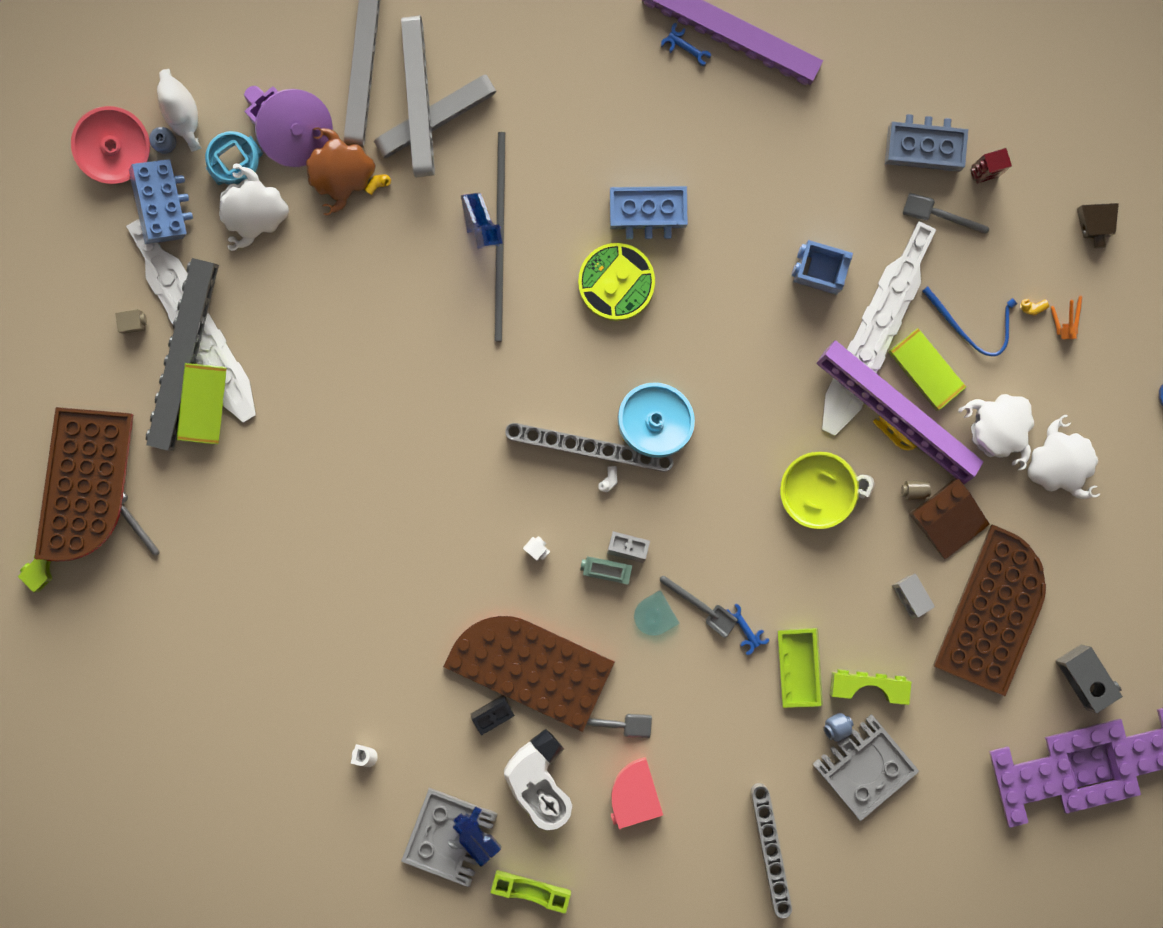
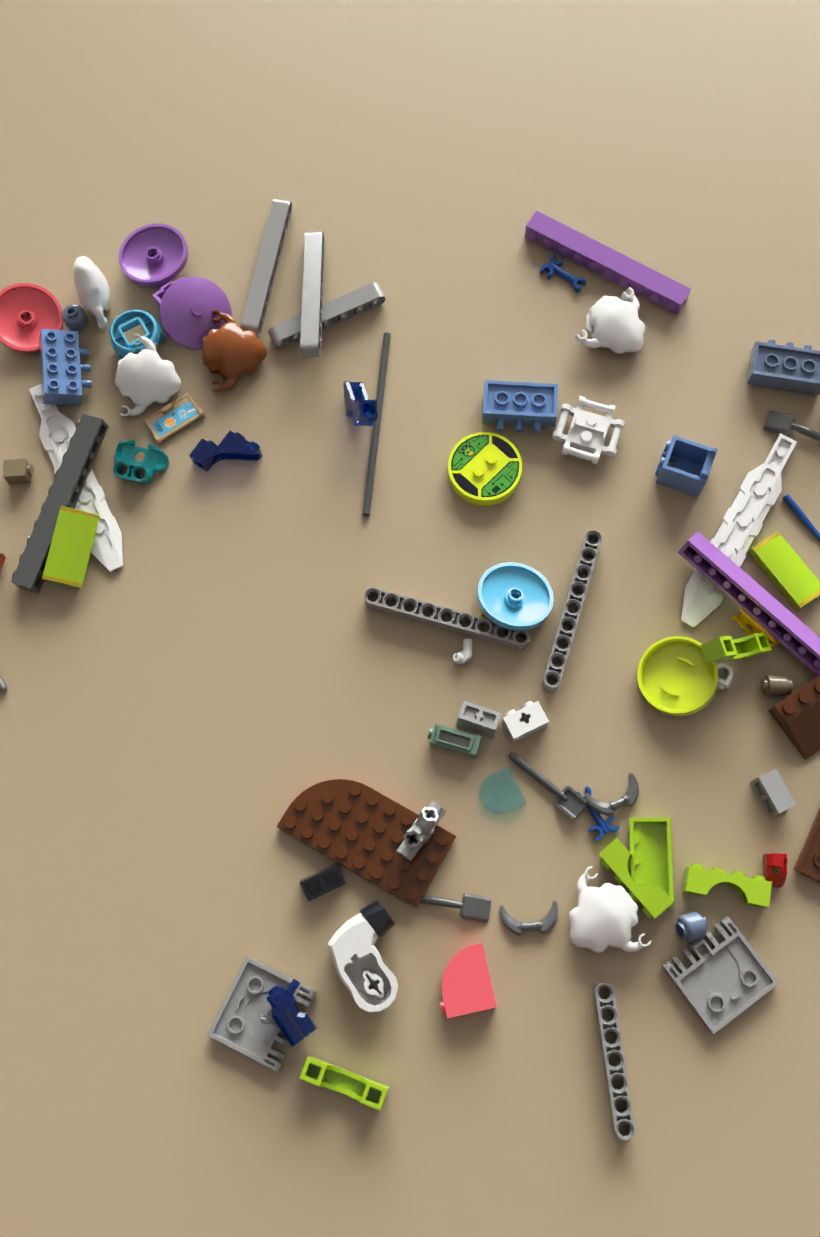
camera: 10 degrees right, 15 degrees down
(237, 58) = (153, 255): none -> medium lavender dish
(271, 300) = (154, 461): none -> teal piece
(285, 249) = (166, 424): none -> door
(351, 278) = (231, 447): none -> clear blue arch
(364, 756) = (182, 915): white plate -> none
(377, 181) = (267, 367): yellow arm -> none
(536, 548) = (385, 714): white plate -> none
(581, 662) = (421, 830): none -> light grey piece
(668, 554) = (536, 720): none -> white brick
(680, 740) = (518, 927): none -> dark grey piece
(721, 232) = (588, 430): none -> white brick
(723, 401) = (572, 618): none -> light grey beam
(744, 108) = (614, 324): none -> white piece
(757, 726) = (603, 917): none -> white piece
(758, 623) = (610, 808): none -> dark grey piece
(801, 708) = (654, 899): none -> lime arch
(875, 460) = (728, 649): none -> lime arch
(915, 667) = (775, 868): none -> red rock

